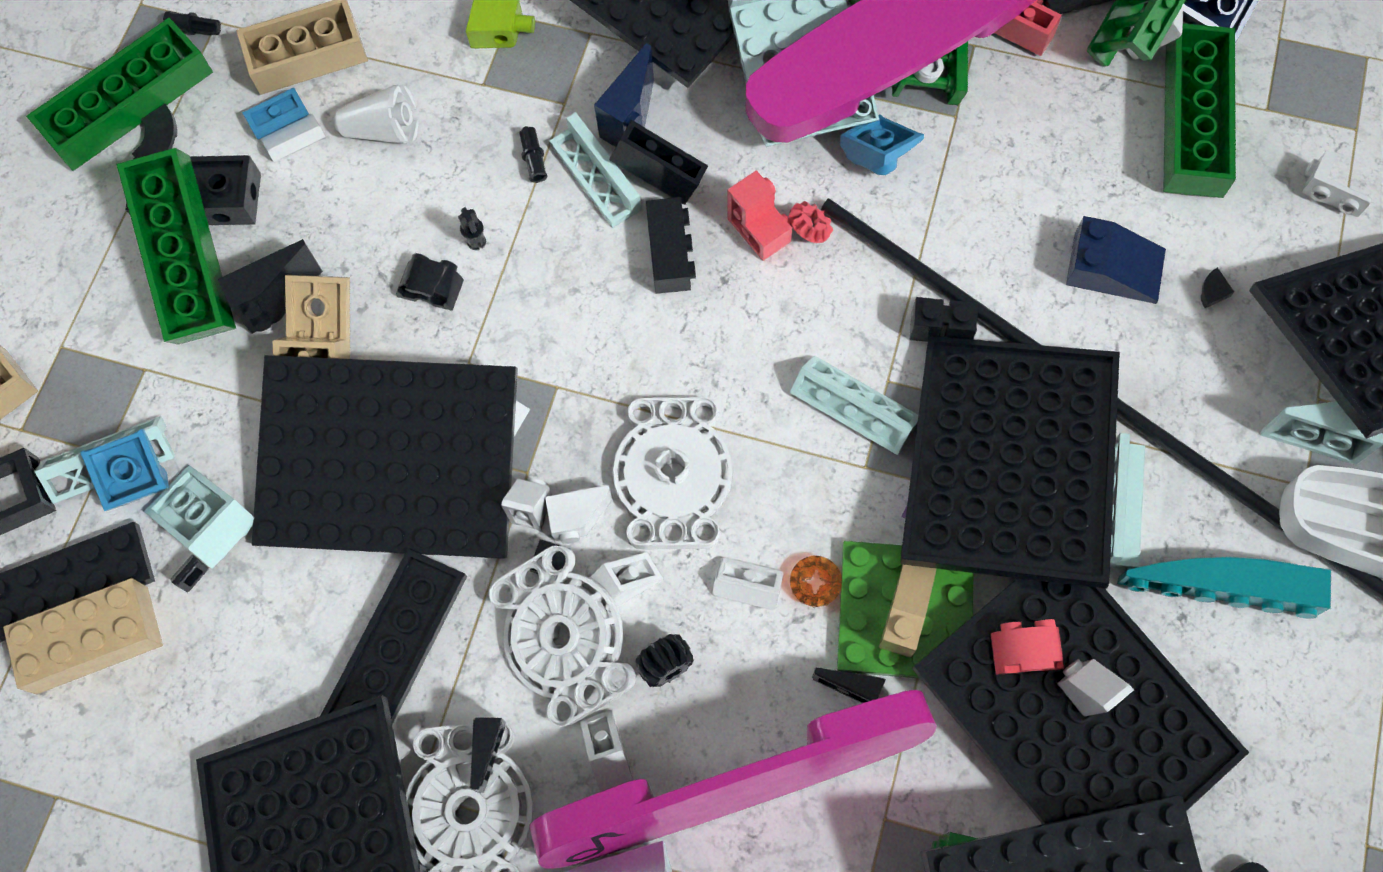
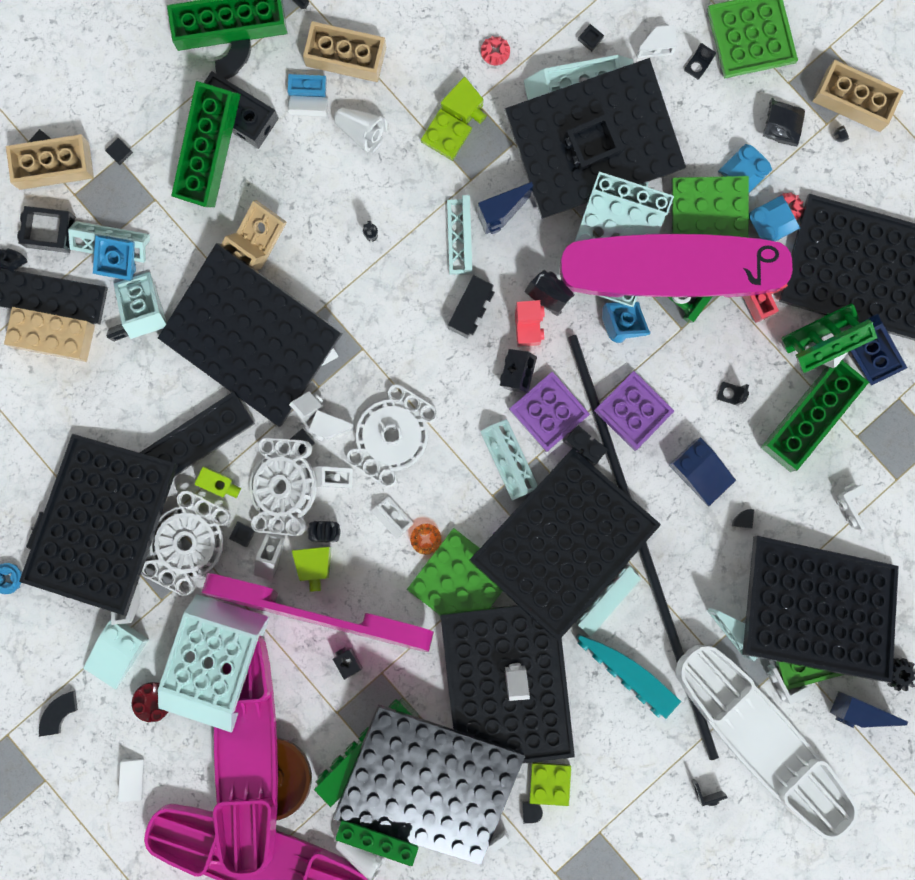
camera: 25 degrees right, 15 degrees up
(56, 336) = (118, 151): none -> black tile
(258, 289) = (236, 198): black slope -> none
(431, 282) = (331, 246): black cylinder -> none
(446, 689) = (208, 480): none -> lime torso
(485, 745) = (211, 519): black slope -> none
(497, 70) = (446, 134): none -> lime plate
(533, 154) = (433, 202): black axle -> none
(544, 746) = (242, 534): none -> black tile
(658, 162) = (494, 256): black brick -> none
(679, 722) = (313, 565): none -> lime torso
(765, 153) = (550, 291): none -> black slope
(786, 283) = (518, 371): none -> black brick
(801, 220) = (548, 343): coral gear -> none
(838, 830) = (345, 670): none -> black brick
(856, 686) = (408, 602): black slope -> none
(864, 311) = (549, 411): none -> medium lavender plate
(908, 610) = (458, 585): tan slope -> none
(973, 241) = (634, 410): none -> medium lavender plate
(1027, 648) = (500, 644): coral cylinder -> none
(1088, 146) = (740, 393): none -> black bracket
(1244, 820) = (550, 784): none -> lime plate

